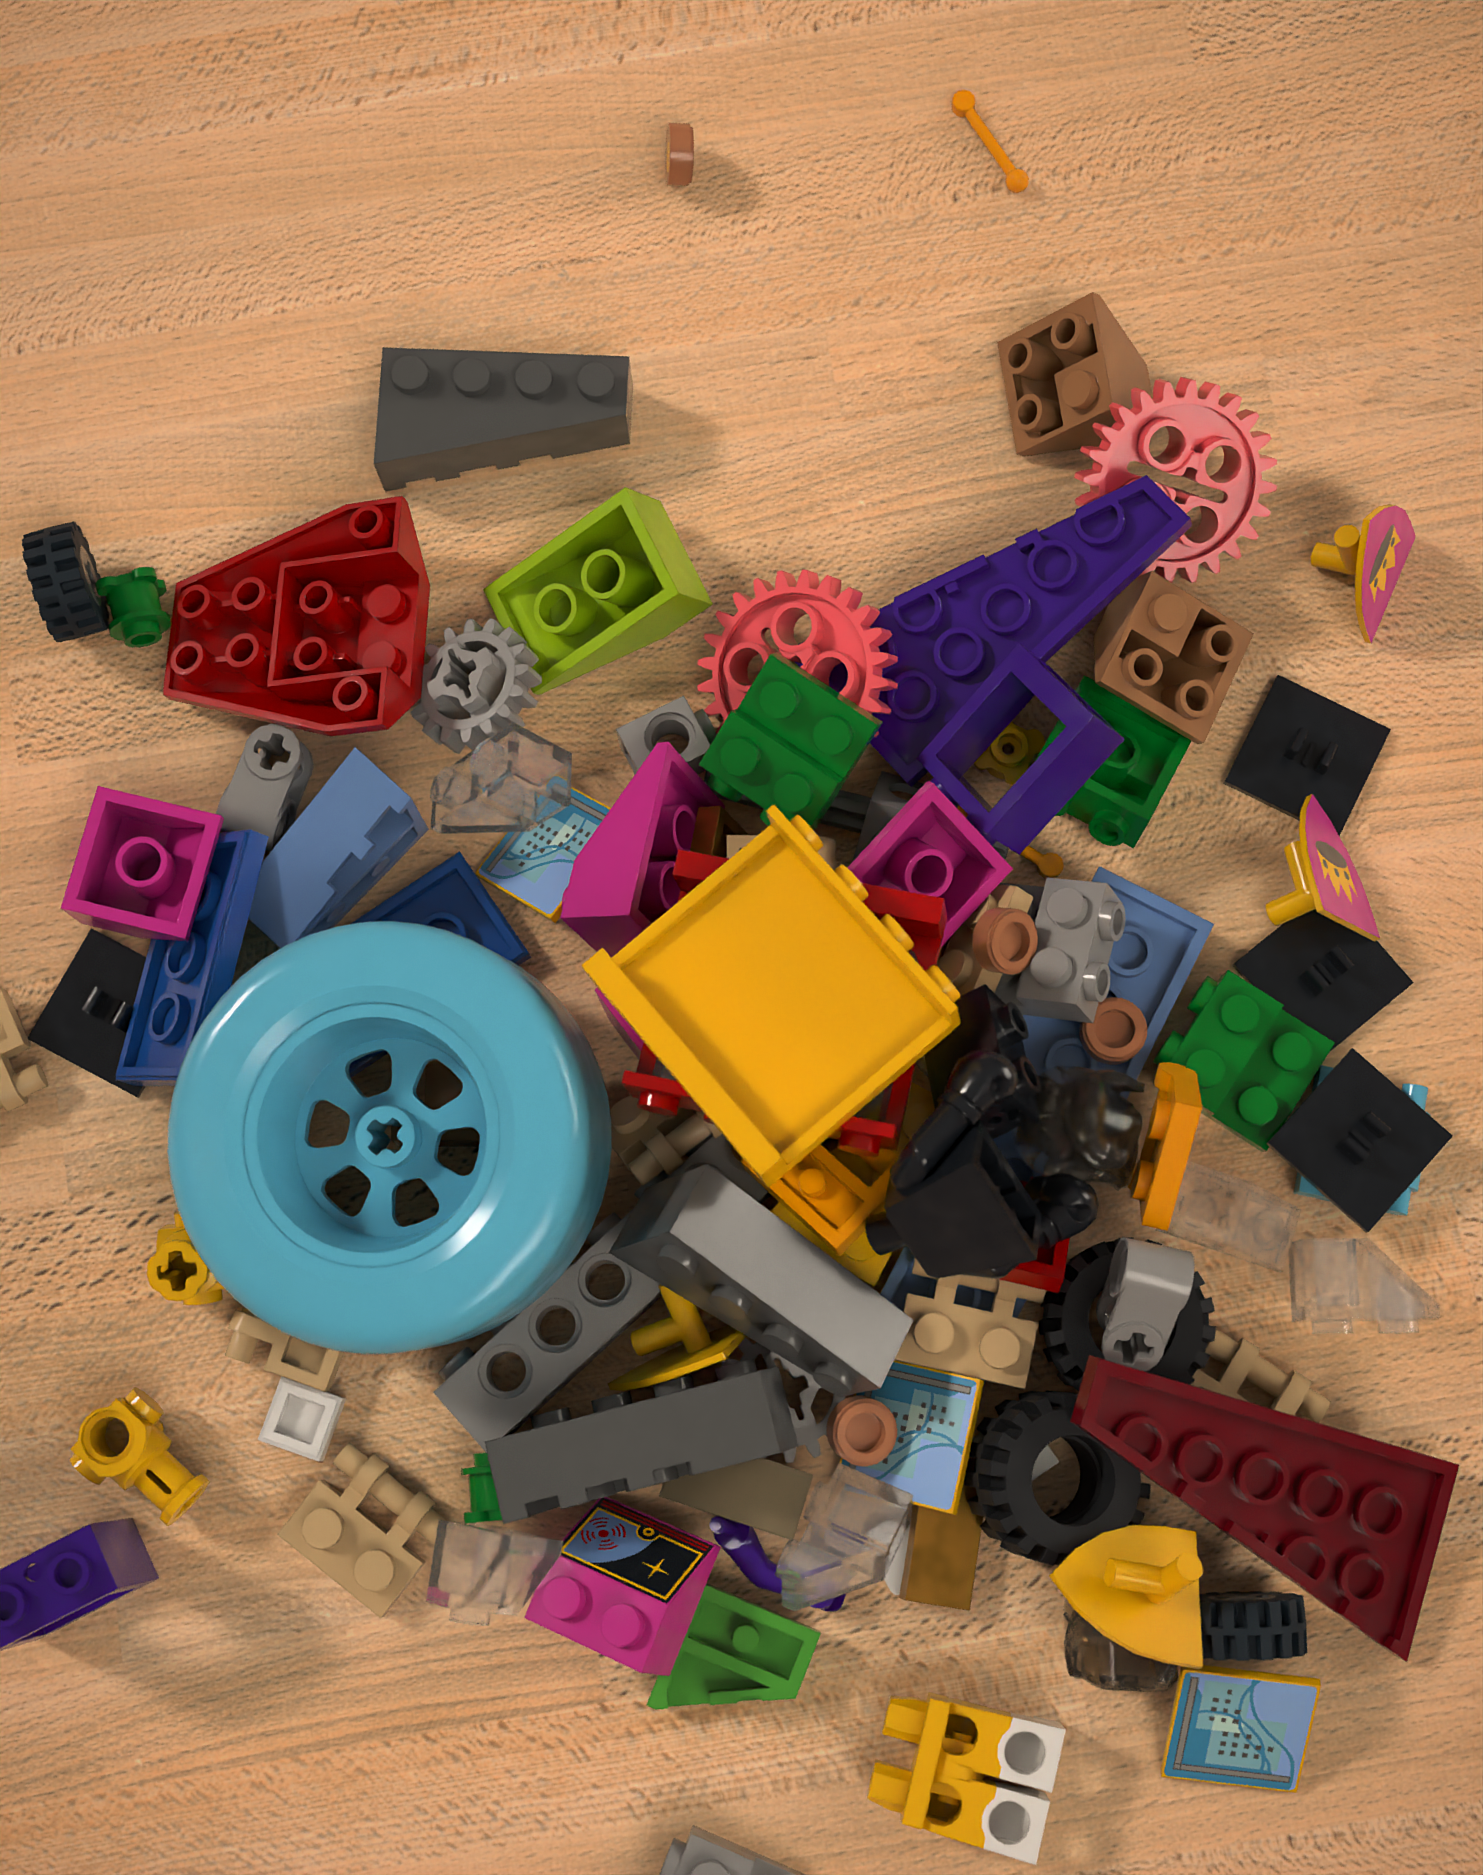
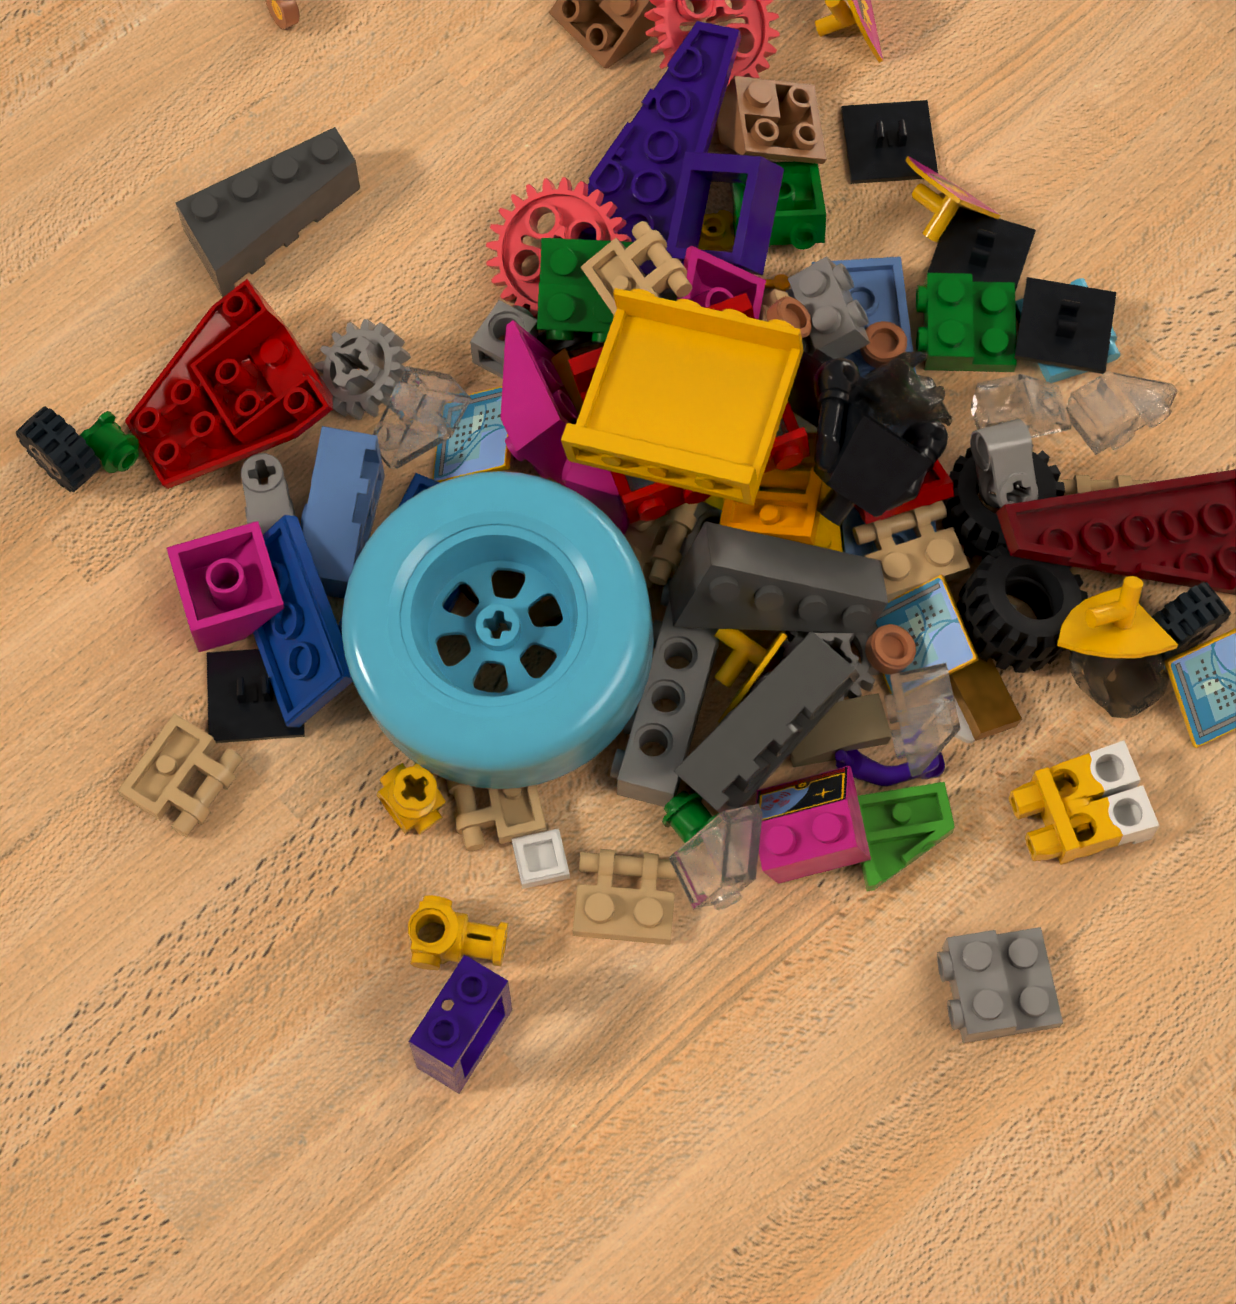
camera: 35 degrees left, 10 degrees down
(600, 589) = (402, 273): lime slope -> none
(823, 777) = (619, 267): none -> tan plate
(1166, 1144) = (962, 382): light orange plate -> none

